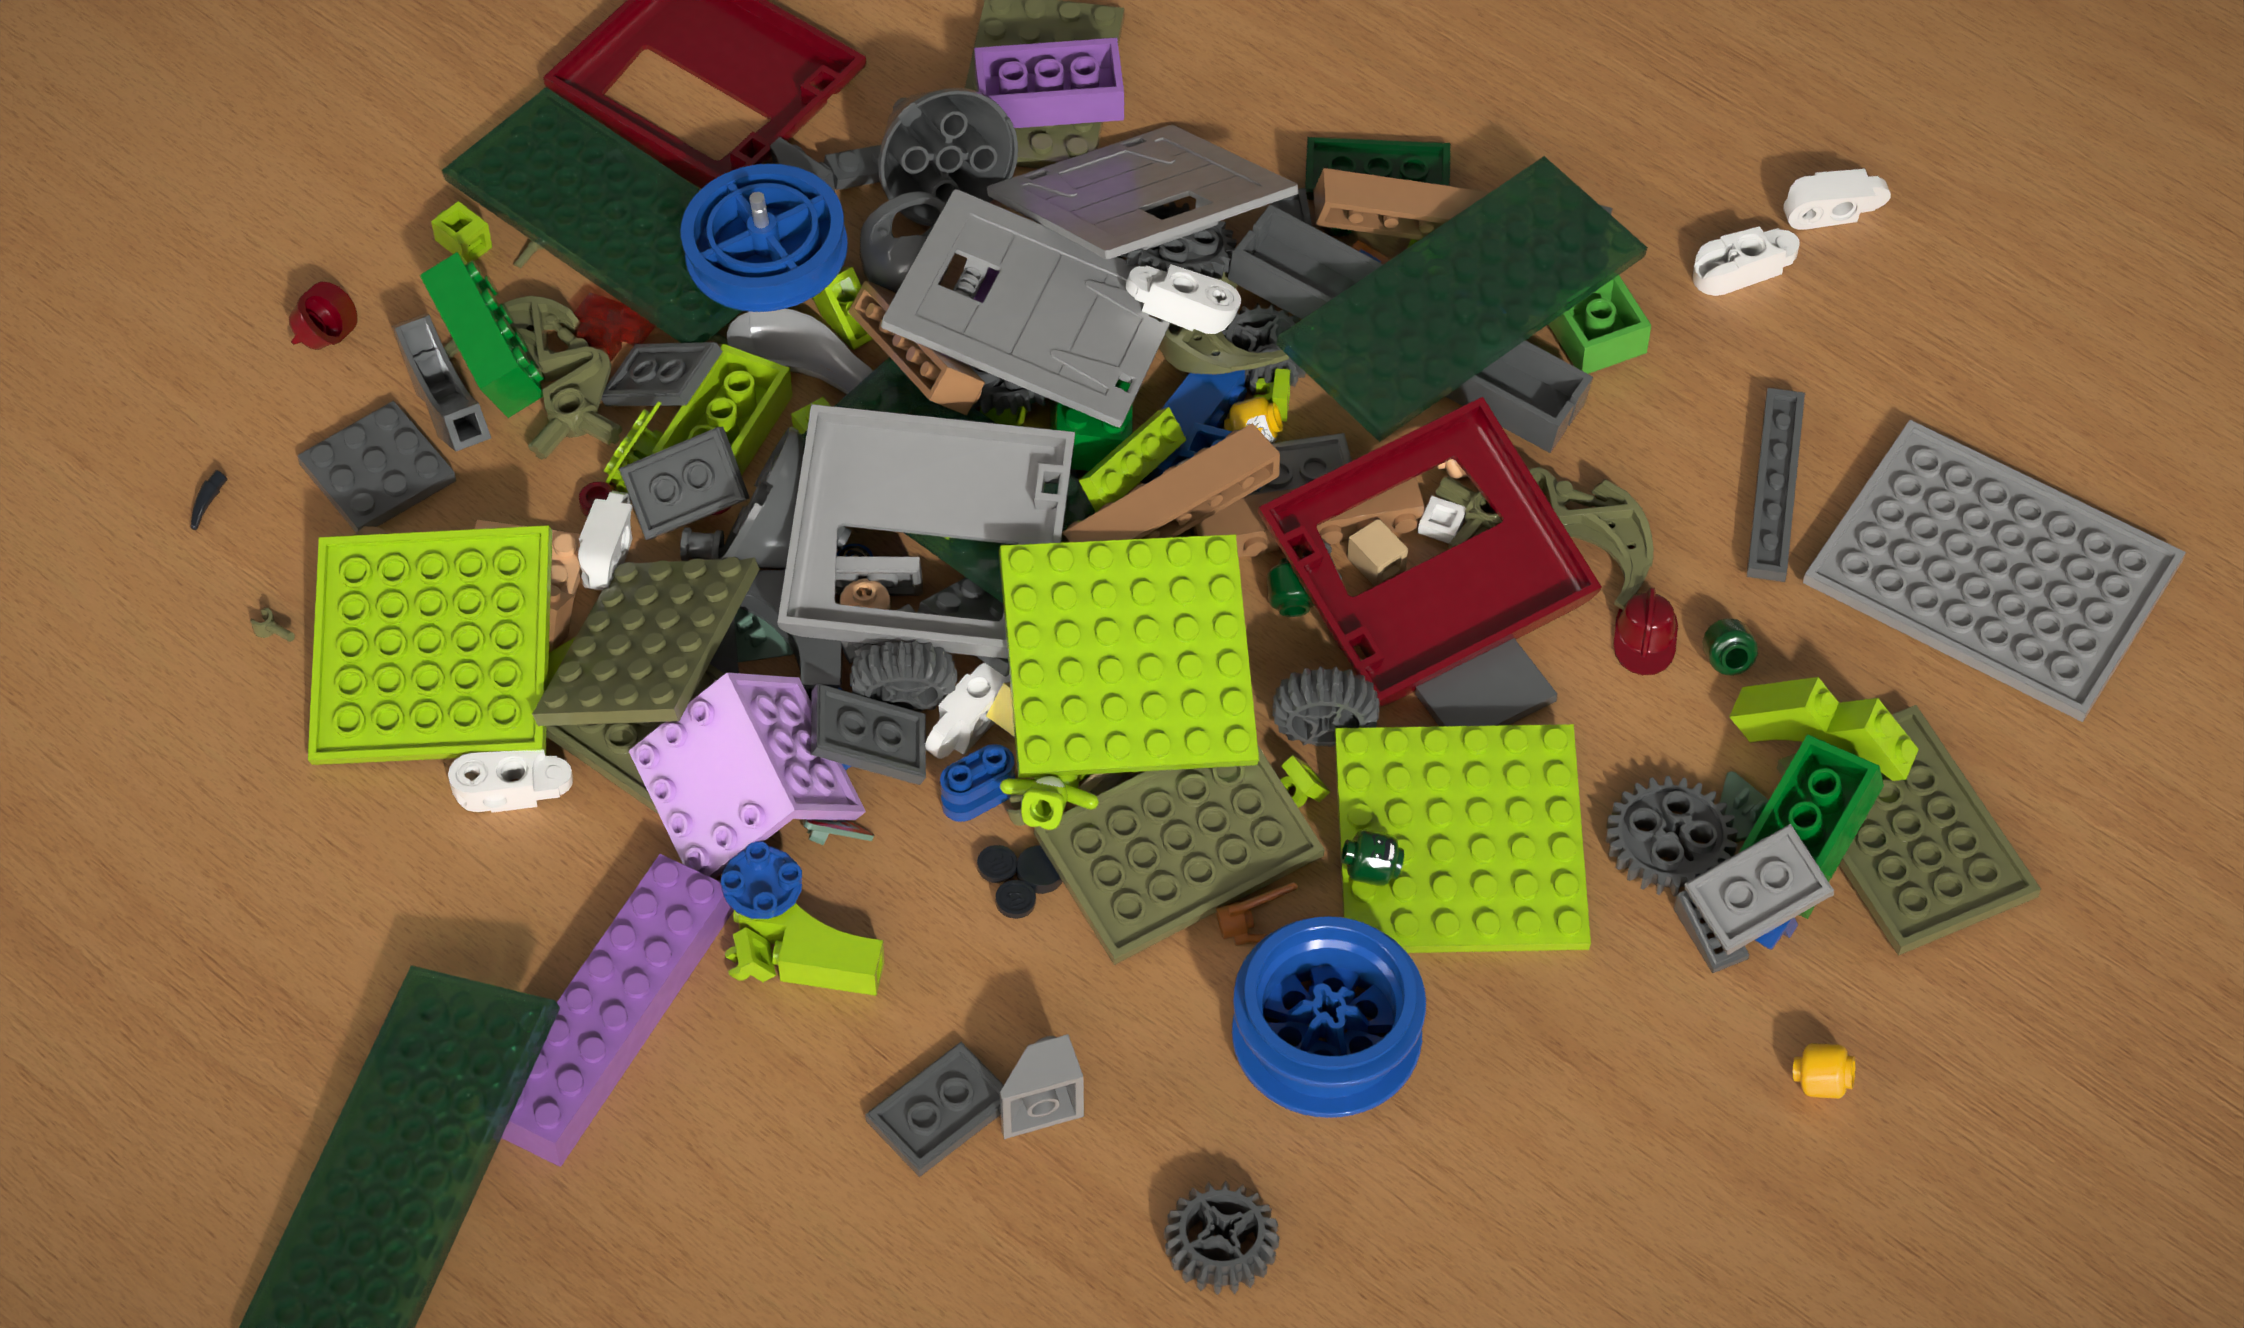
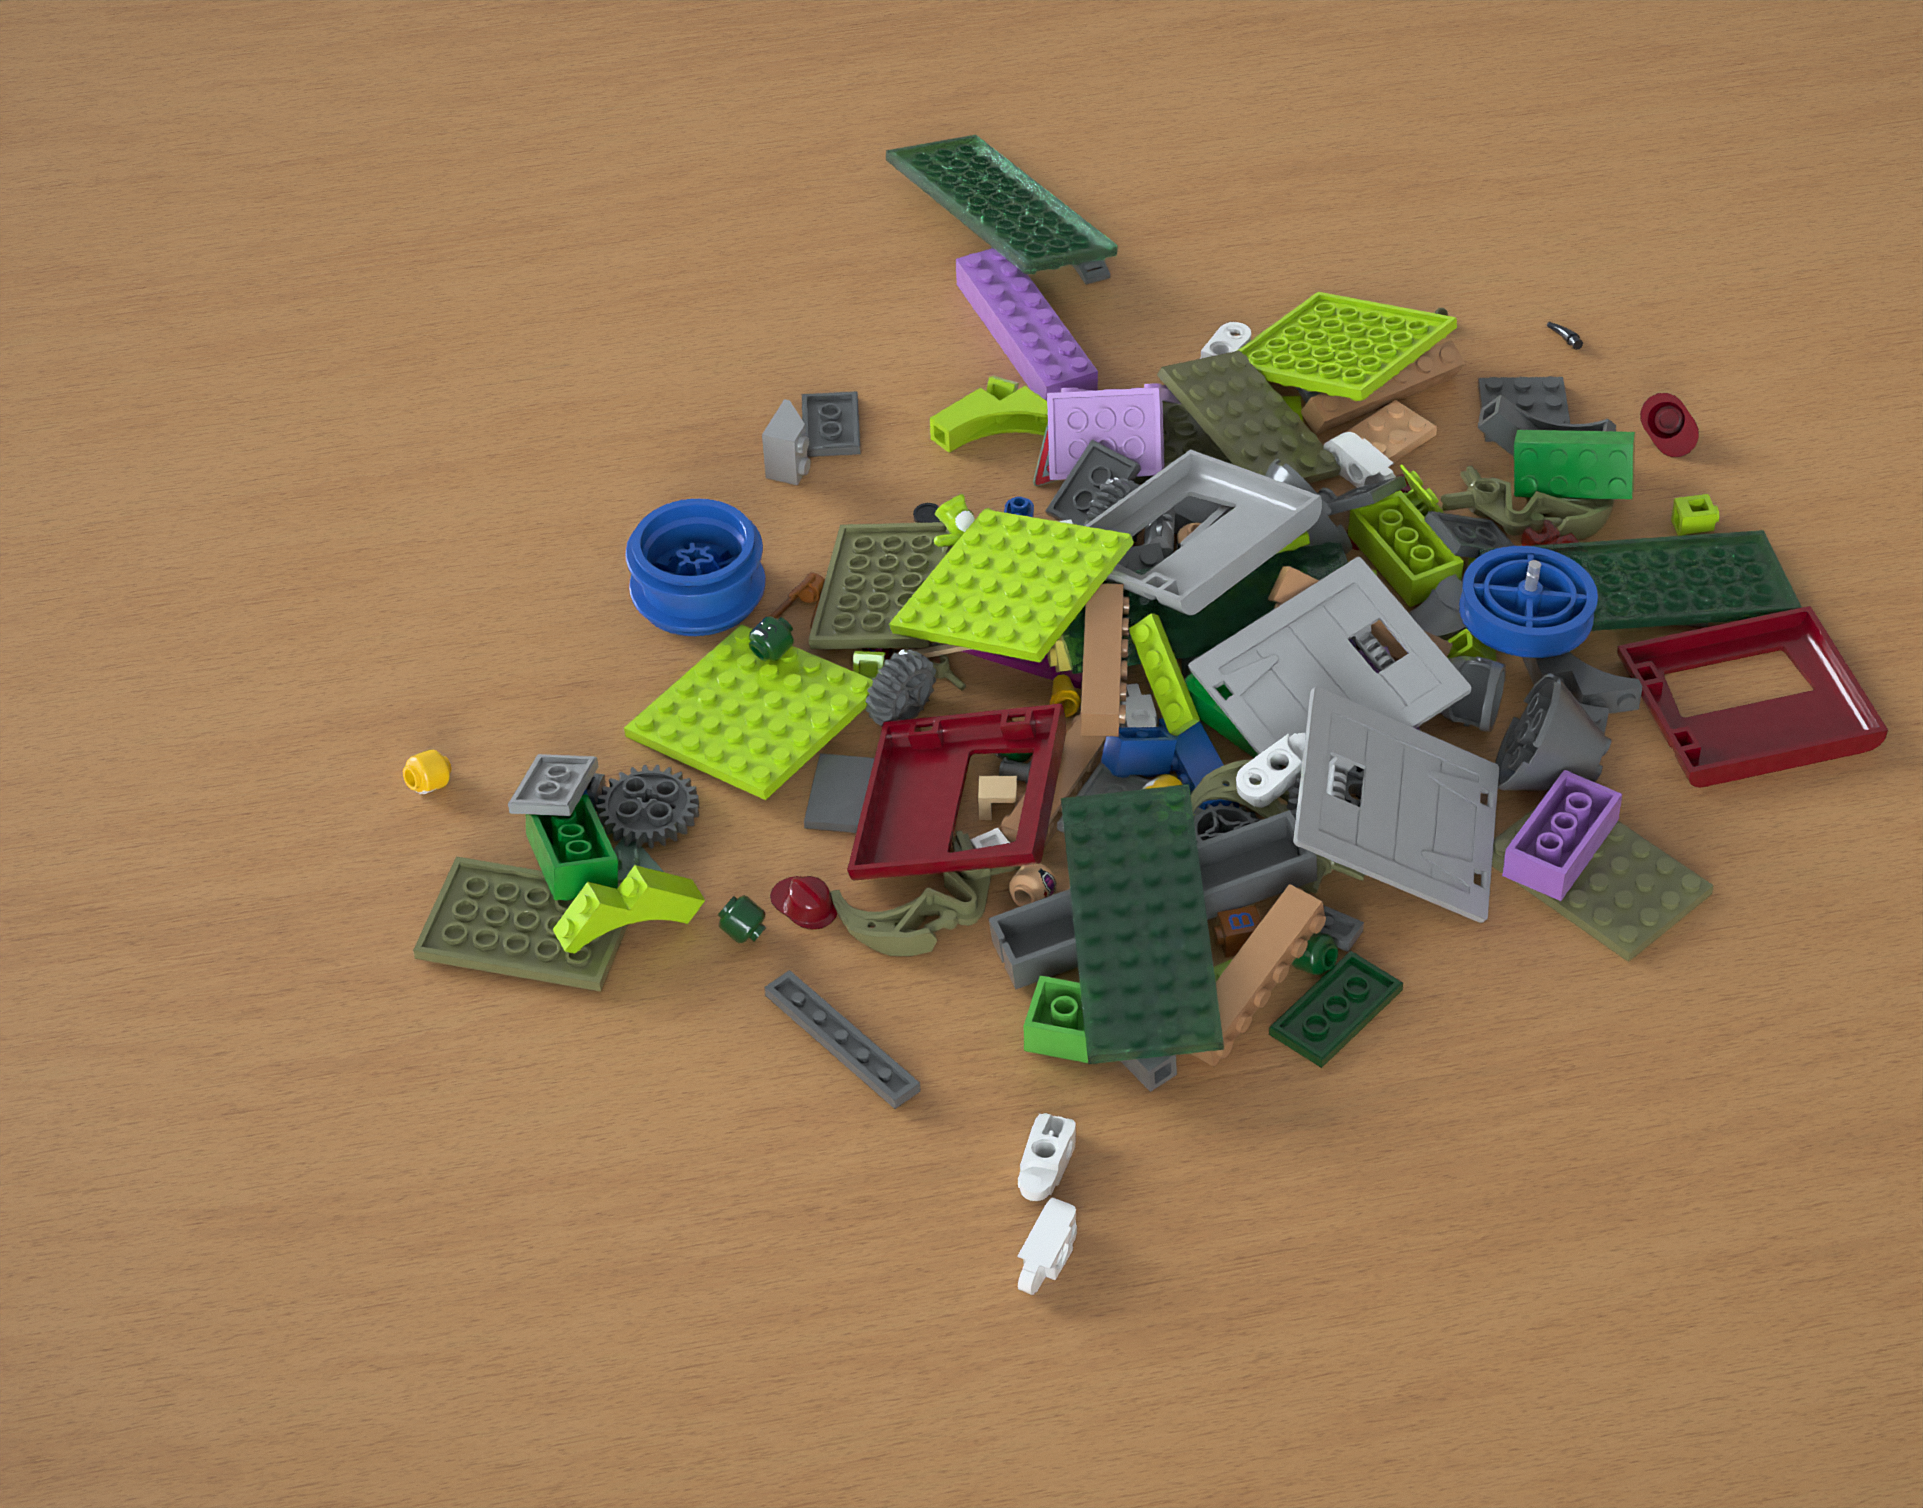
camera: 130 degrees right, 10 degrees down
(761, 881) = (1030, 394): blue dish -> none
(1228, 1217) = (628, 477): dark grey gear -> none
(1995, 569) = (652, 1110): light grey plate -> none

